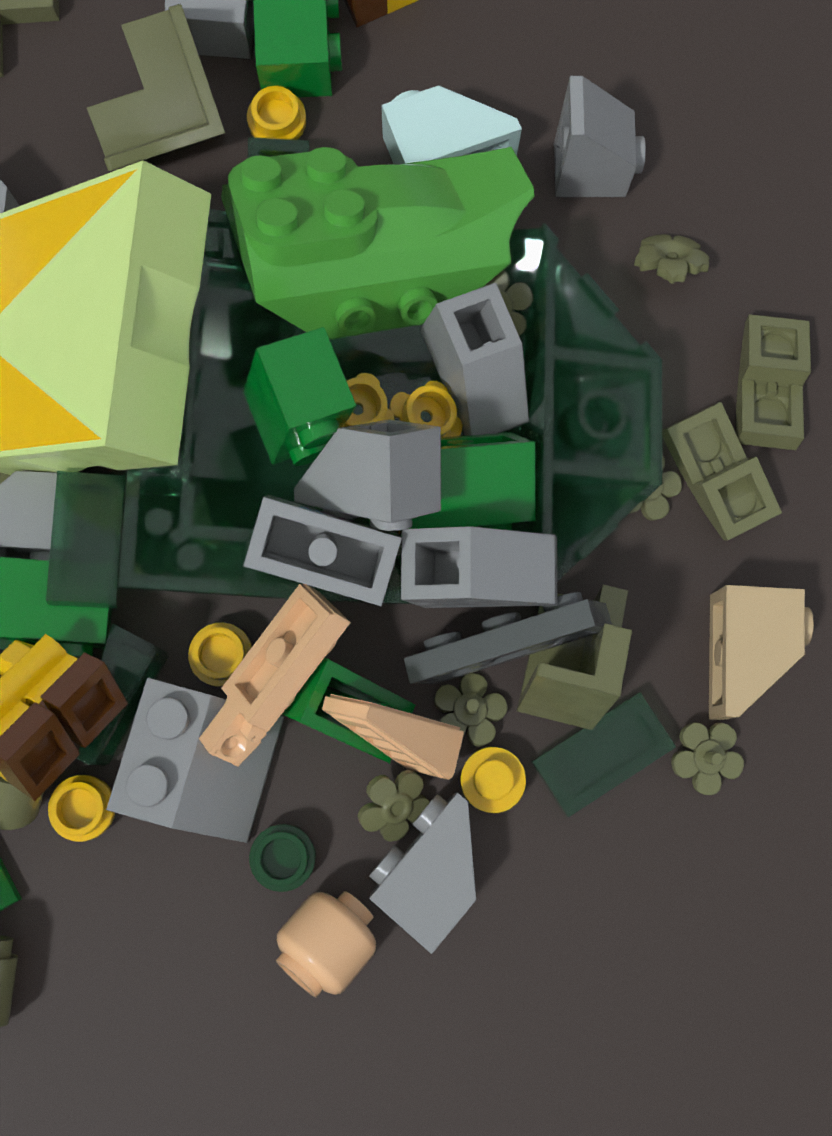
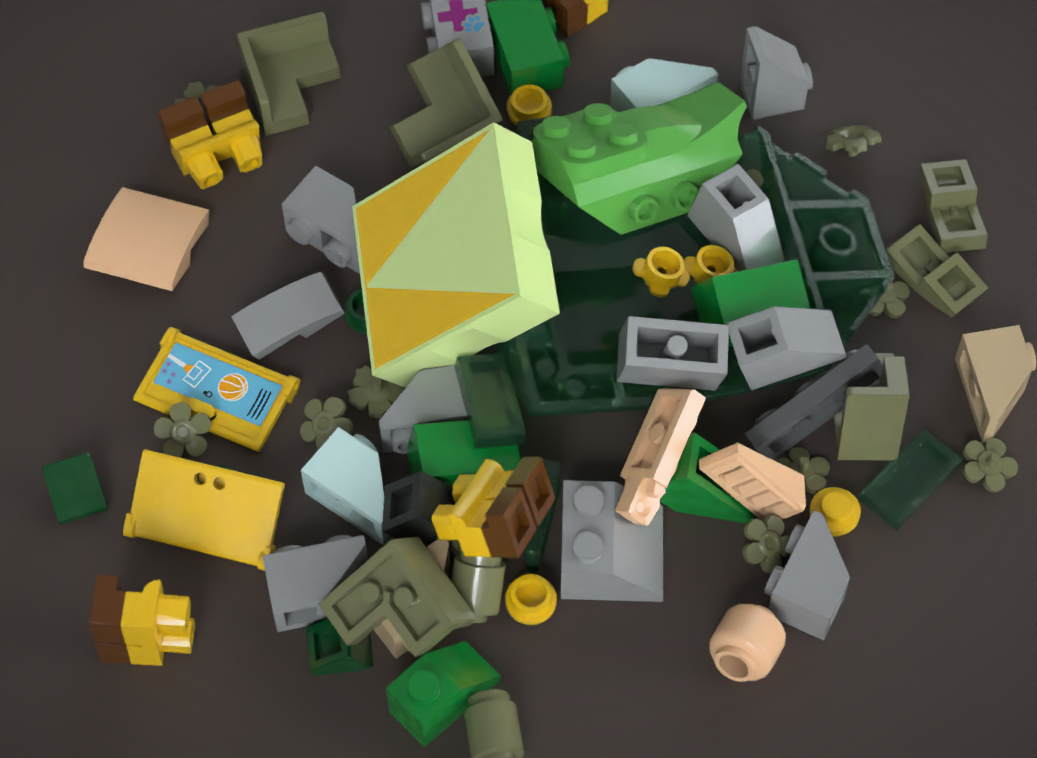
camera: 10 degrees left, 20 degrees down
(217, 652) = (602, 465): yellow plate -> none
(282, 857) = (694, 599): dark green plate -> none
(298, 396) = (626, 260): green brick -> none
(377, 473) = (699, 288): light grey slope -> none

